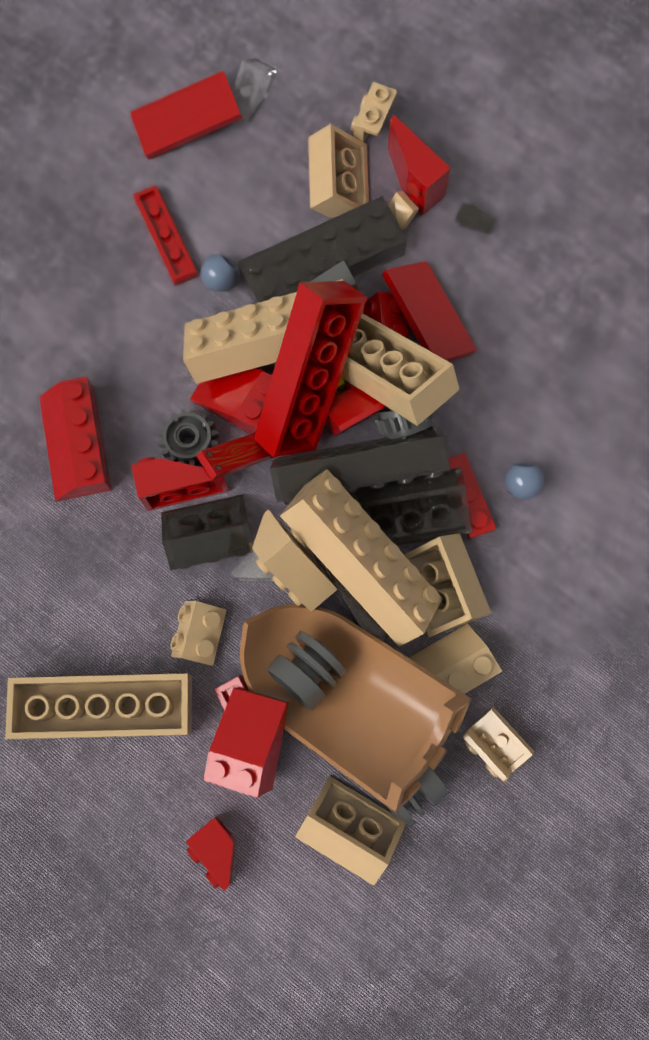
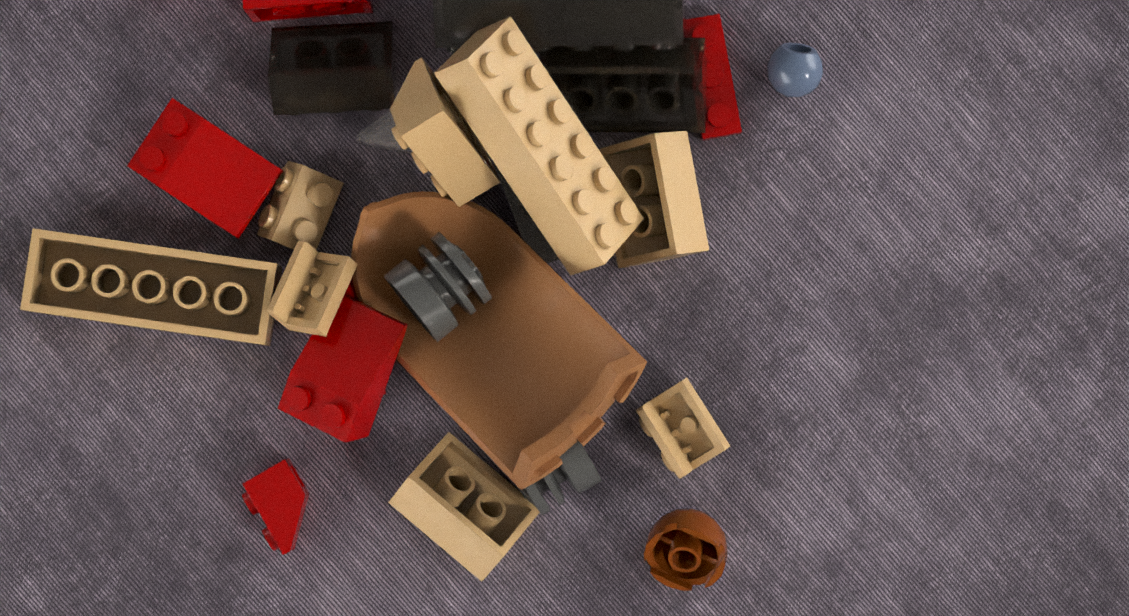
camera: 10 degrees right, 10 degrees up
(127, 614) = (205, 168): none -> red slope
(215, 688) = (311, 289): none -> tan bracket
(459, 659) = (649, 307): tan slope -> none
(520, 834) = (686, 549): none -> dark orange cylinder

